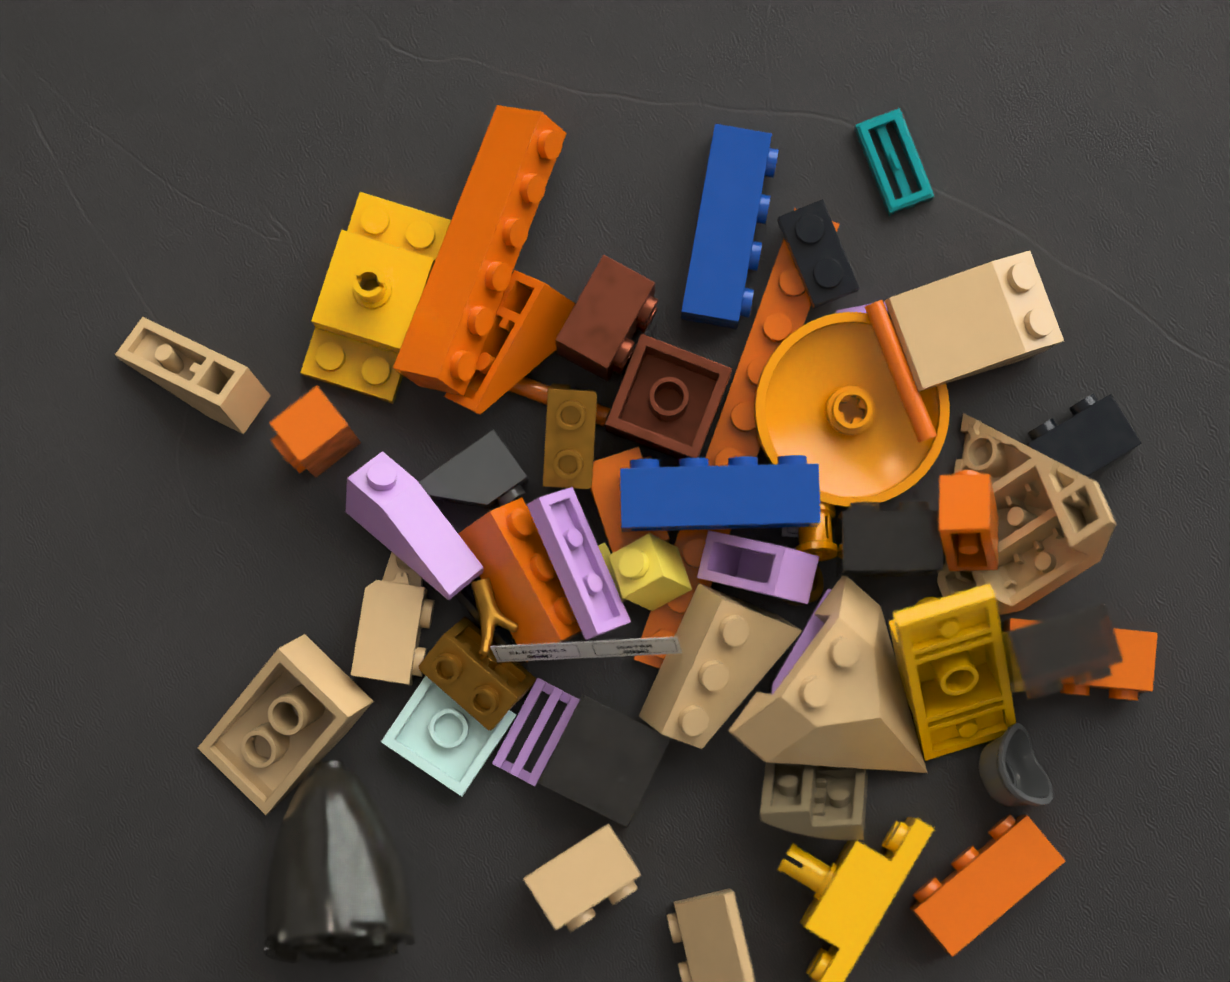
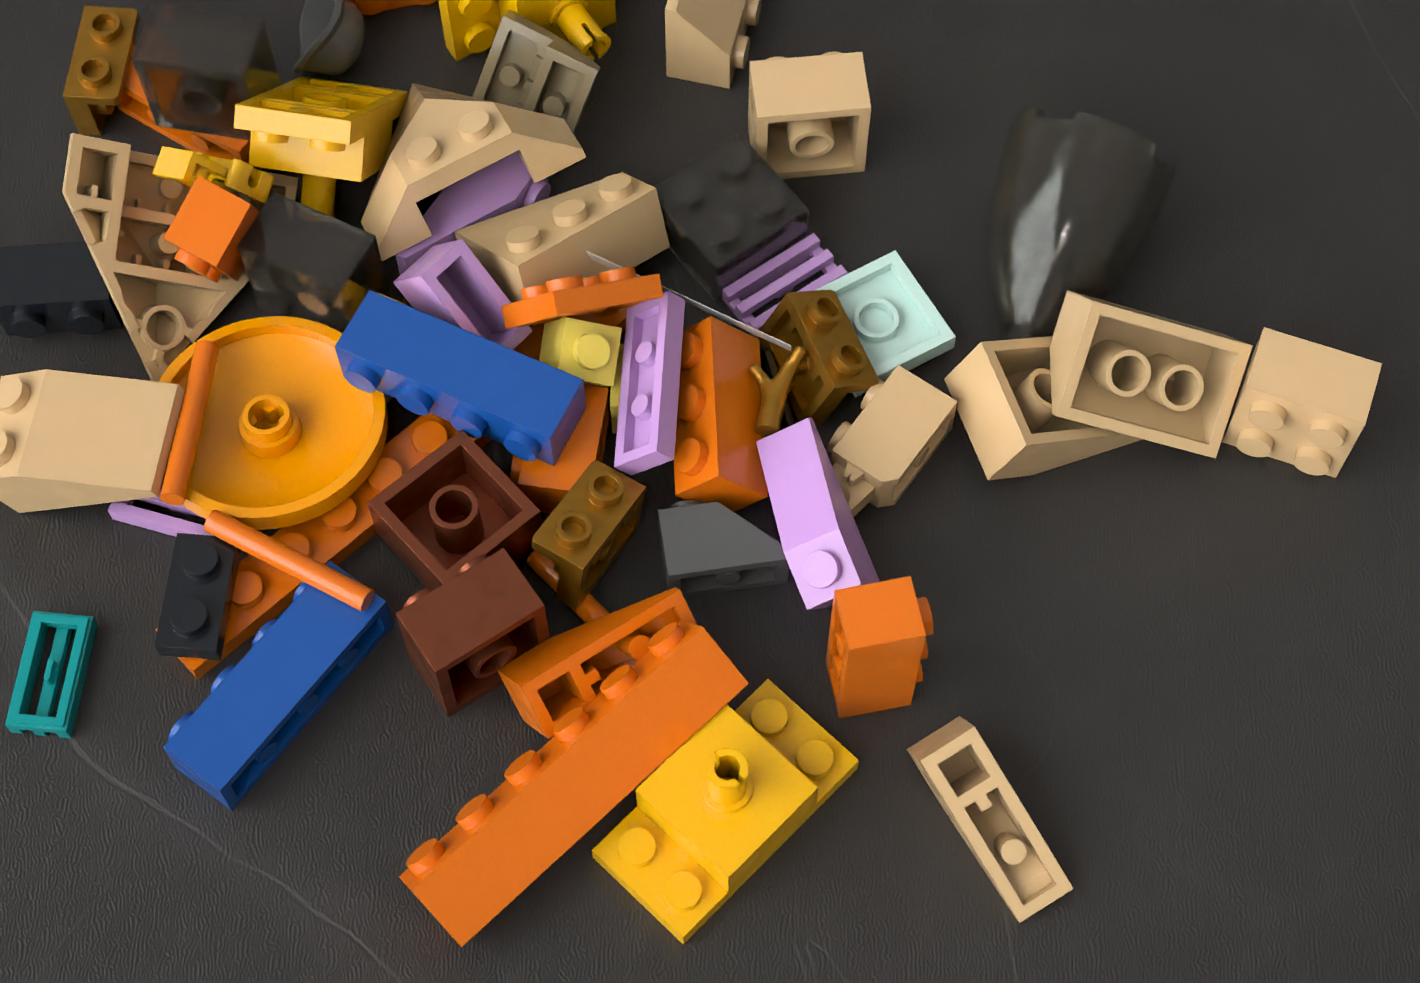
camera: 155 degrees left, 20 degrees down
(92, 800) = (1302, 403): none -> tan brick
(221, 770) = (1144, 374): none -> tan slope
(659, 594) = (581, 296): none -> orange plate
(765, 302) = (289, 560): none -> orange bar
(1004, 565) = (228, 174): none -> yellow piece
(1172, 648) = (99, 65): none -> pearl gold bracket

